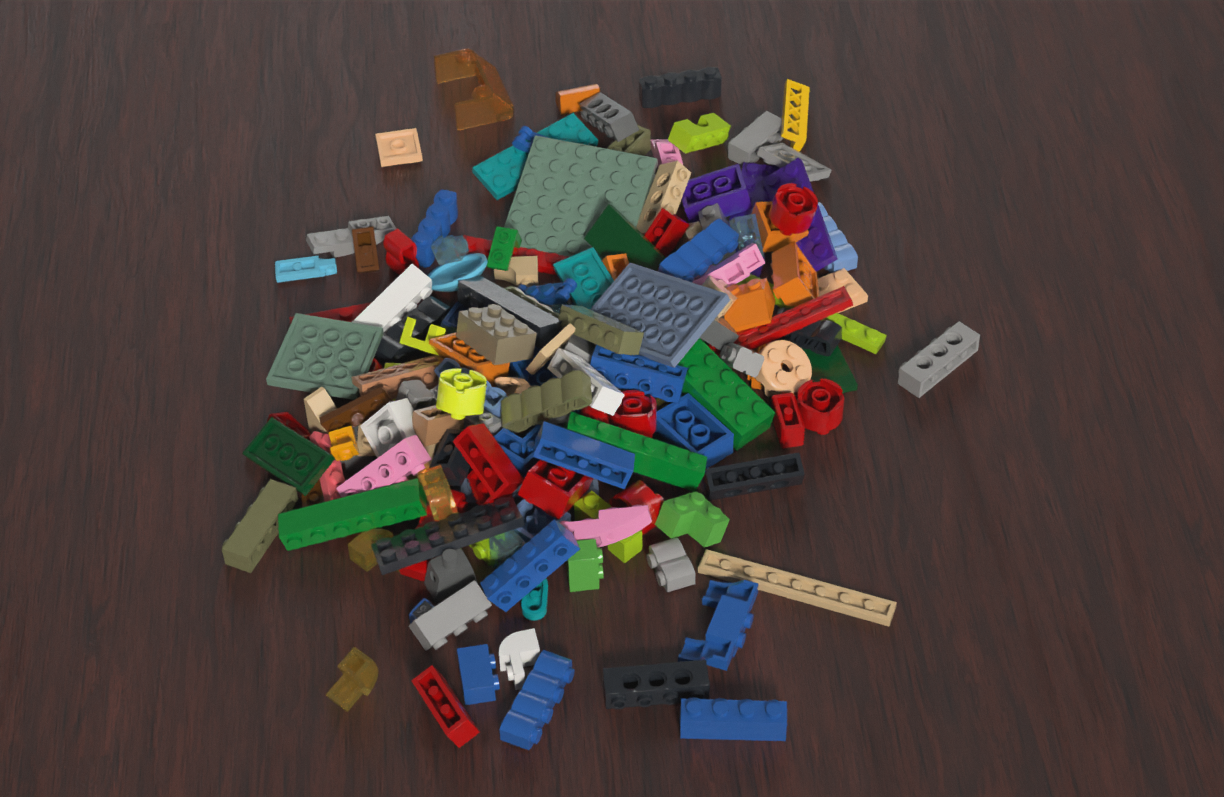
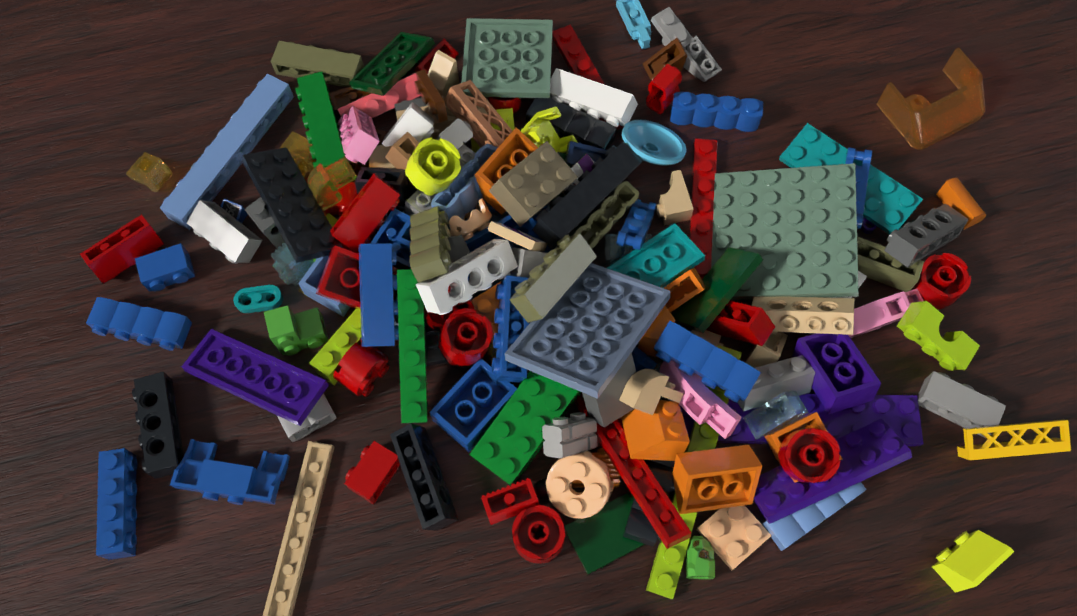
camera: 80 degrees right, 20 degrees up
(343, 443) = (398, 97): light orange bracket -> none
(346, 613) = (226, 151): none -> medium blue brick
(398, 147) = (826, 56): light nougat plate -> none
(449, 249) = (686, 130): clear light blue brick -> none
(502, 248) = (692, 172): green bracket -> none
(516, 652) = (188, 295): white brick -> none
(530, 565) = (263, 282): blue brick -> none
(612, 526) = (311, 334): bright pink slope -> none
(625, 594) = (255, 376): none -> dark purple plate
(652, 117) = (943, 280): none -> red brick
(681, 87) = (1021, 309): black brick -> none
(692, 516) = (363, 420): bright green brick -> none
(746, 519) = (372, 472): none -> red brick
(782, 154) = (933, 450): light grey plate -> none
(860, 312) = (699, 559): none -> bright green rock
(884, 157) = (970, 560): none -> neon yellow slope

